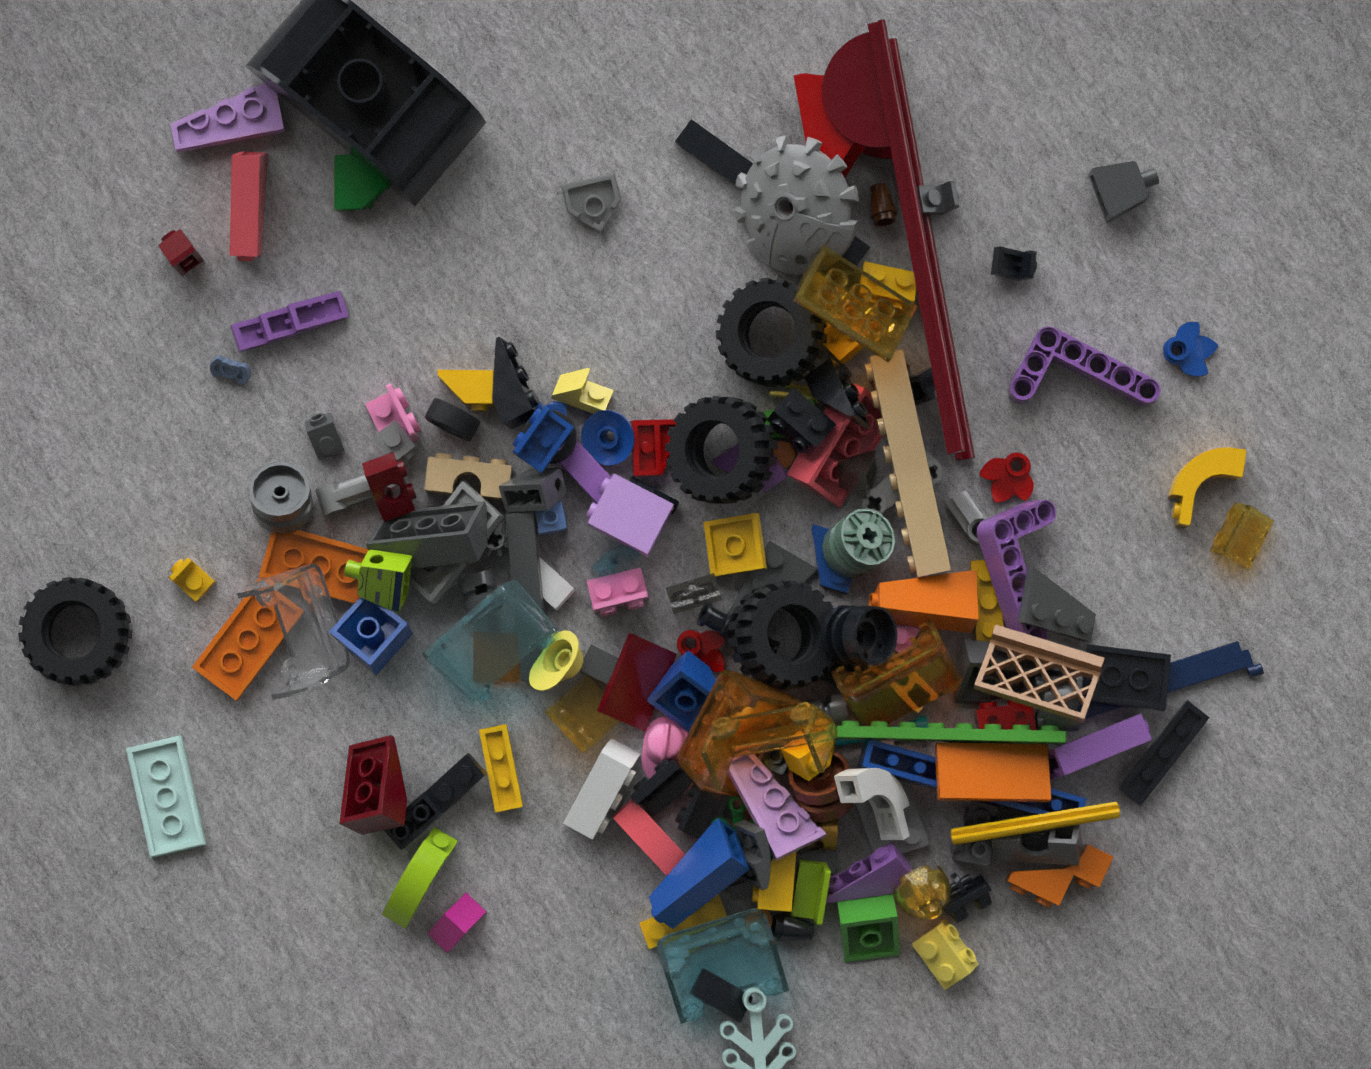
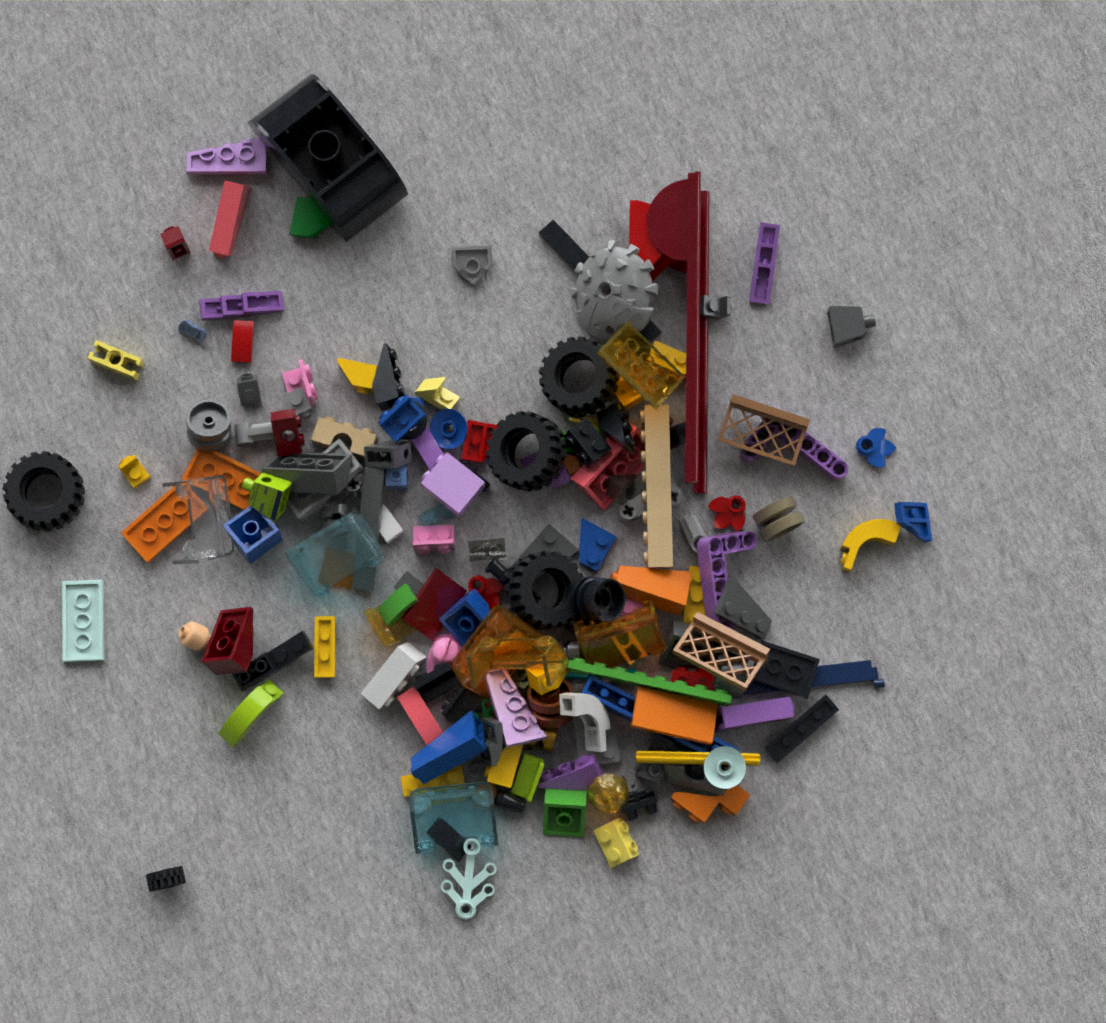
camera: 10 degrees right, 5 degrees down
(127, 422) = (111, 354): none -> light yellow piece
(301, 370) = (242, 341): none -> red slope
(322, 789) = (194, 636): none -> light nougat head
(452, 419) = (341, 394): black tyre -> none
(456, 922) = (270, 750): dark pink slope -> none
(557, 662) = (380, 578): light yellow piece -> none
(587, 693) = (395, 605): none -> bright green slope
(735, 545) = (523, 521): yellow plate -> none
(849, 552) = (611, 536): sand green wheel -> none
(881, 208) = (675, 306): reddish brown cone -> none
(991, 124) = (764, 263): none -> medium lavender slope
(1013, 263) = (761, 362): black bracket -> none
(1040, 333) = (770, 413): none -> medium nougat fence
(1079, 475) = (777, 518): none -> dark tan wheel
(1079, 844) = (722, 778): none -> light aqua dish
(1242, 535) = (887, 584): clear yellow bracket -> none
(1262, 439) = (914, 518): none -> blue wing

